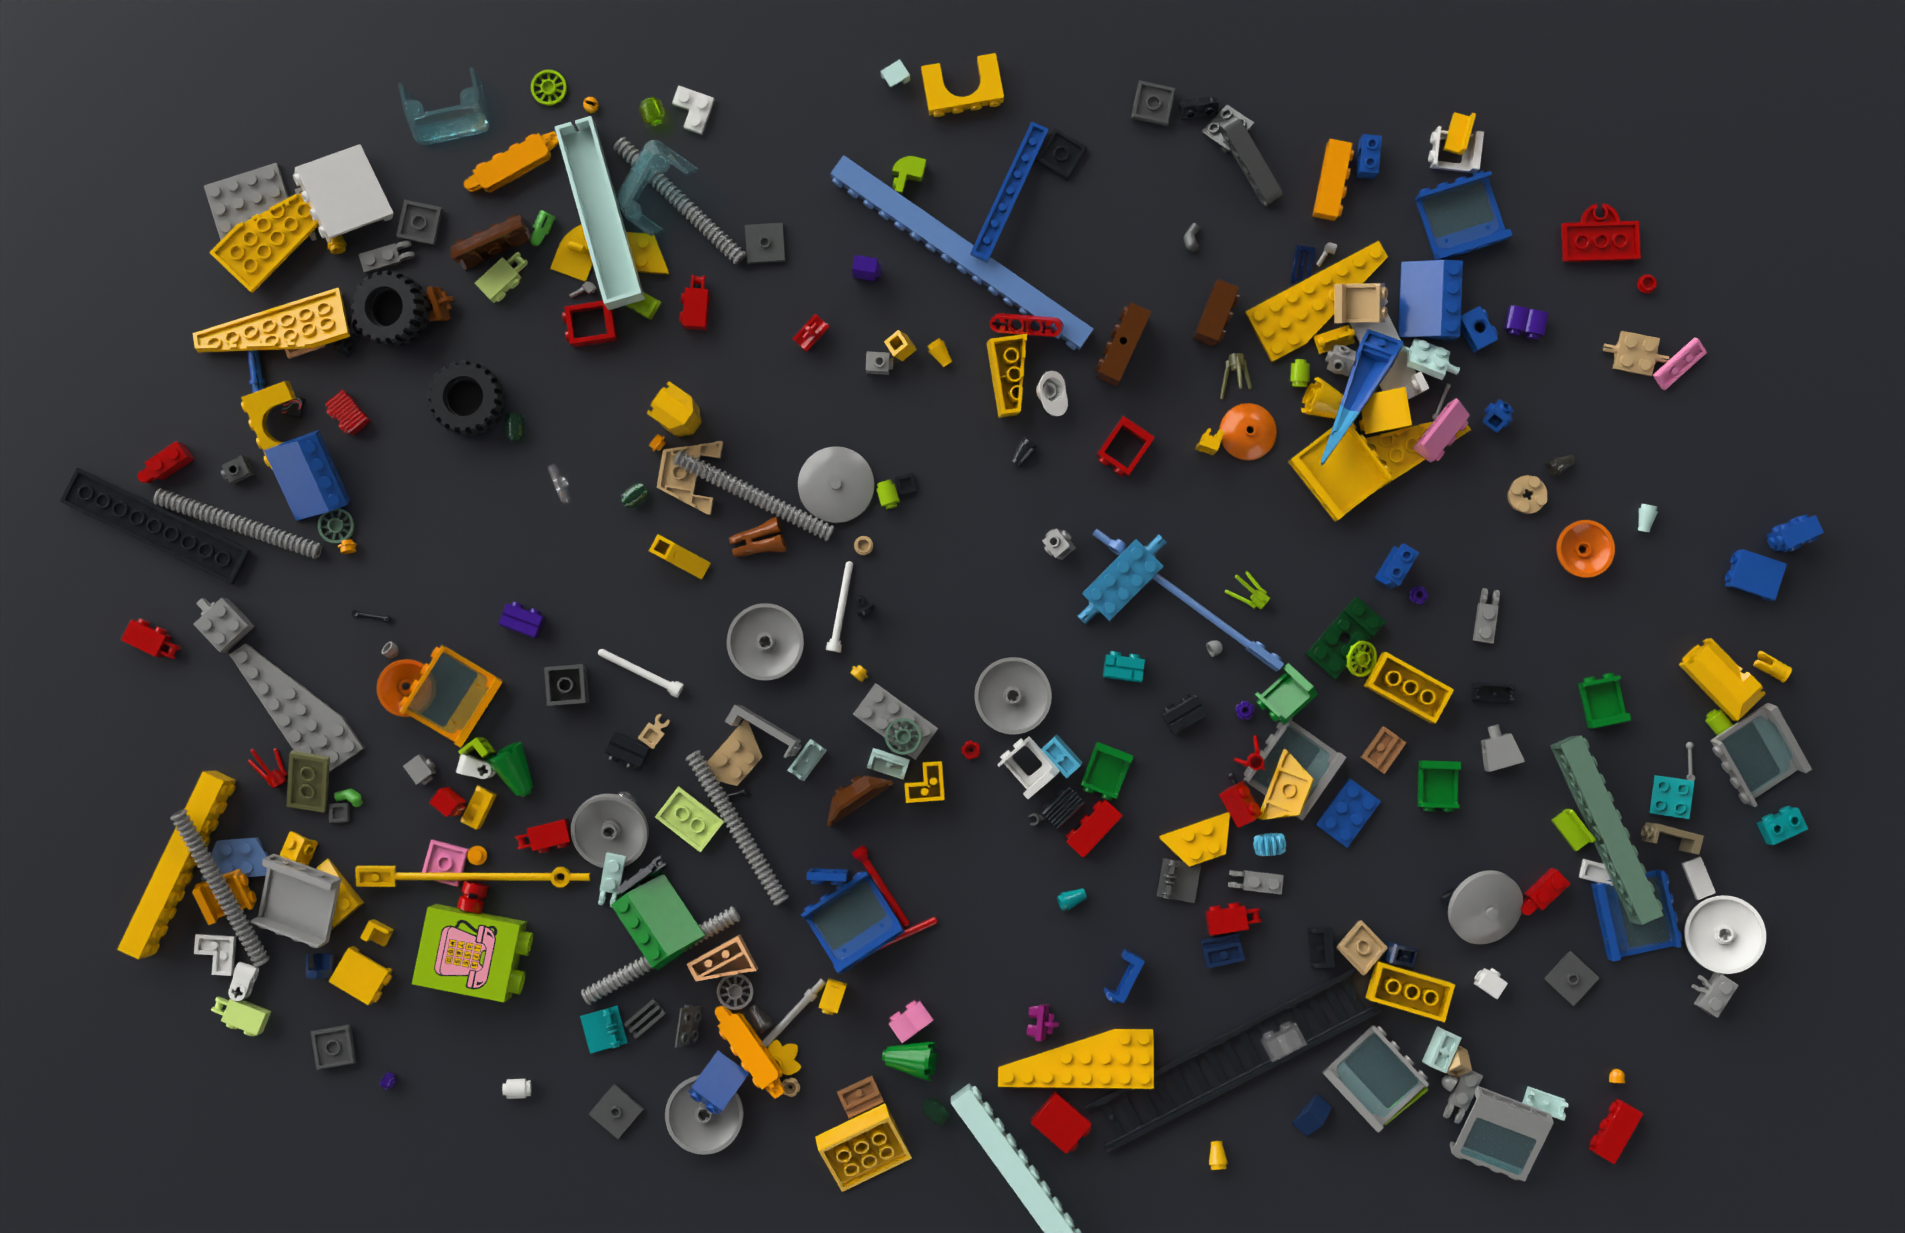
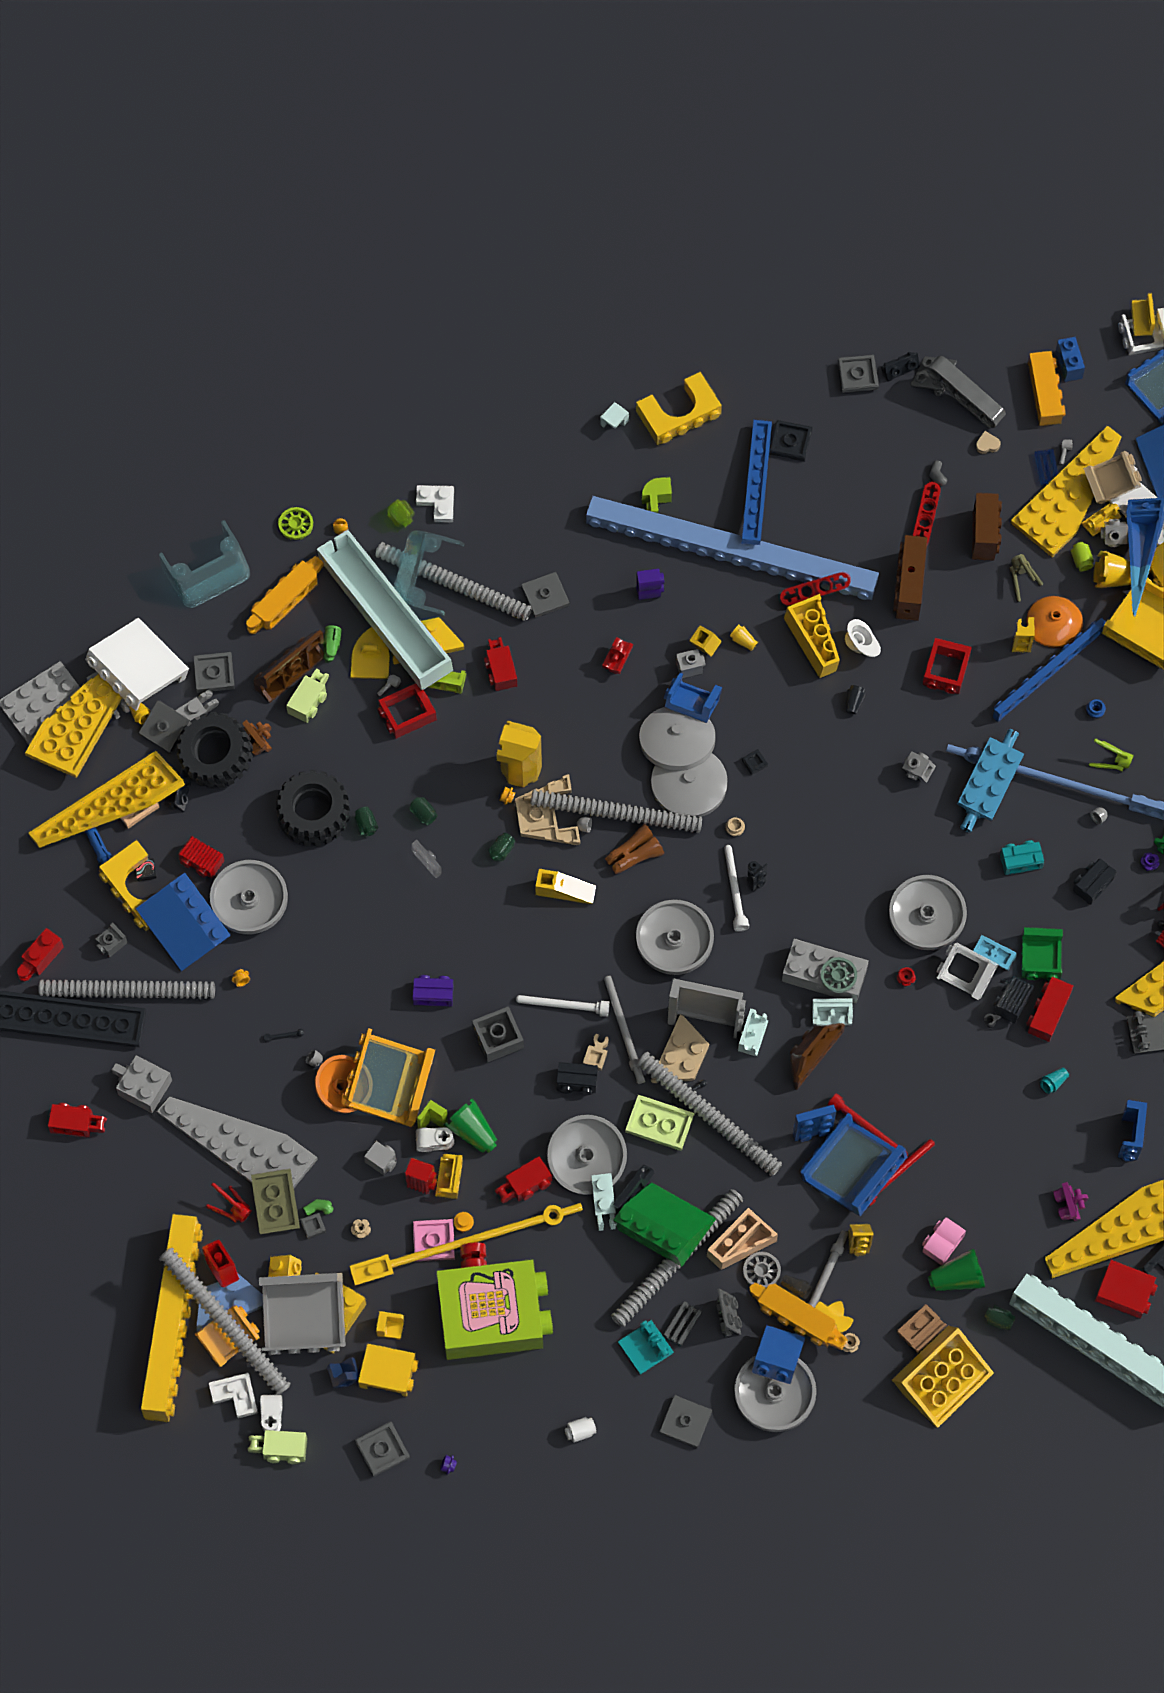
camera: 15 degrees left, 20 degrees down
(237, 827) = (220, 1263): none -> red brick
(336, 526) = (221, 963): sand green wheel -> none
(353, 264) = (164, 726): none -> dark grey plate
(378, 469) = (249, 896): none -> light grey dish
(380, 835) = (360, 1233): none -> tan plate
(572, 433) = (423, 810): none -> clear green brick
(688, 714) = (624, 1030): none -> light grey bar
(721, 496) = (584, 824): none -> light grey hinge
(839, 437) = (676, 740): none -> light grey dish
(859, 673) = (773, 940): yellow plate -> none
(866, 402) = (691, 699): none -> blue panel
(887, 494) = (741, 774): lime brick -> none
(931, 789) = (880, 1019): yellow brick -> none
(1166, 279) = (927, 515): none -> red beam
(1215, 484) = (1042, 674): none -> blue plate
(1253, 220) = (987, 443): none -> tan tile
(1259, 536) = (1096, 704): none -> blue plate

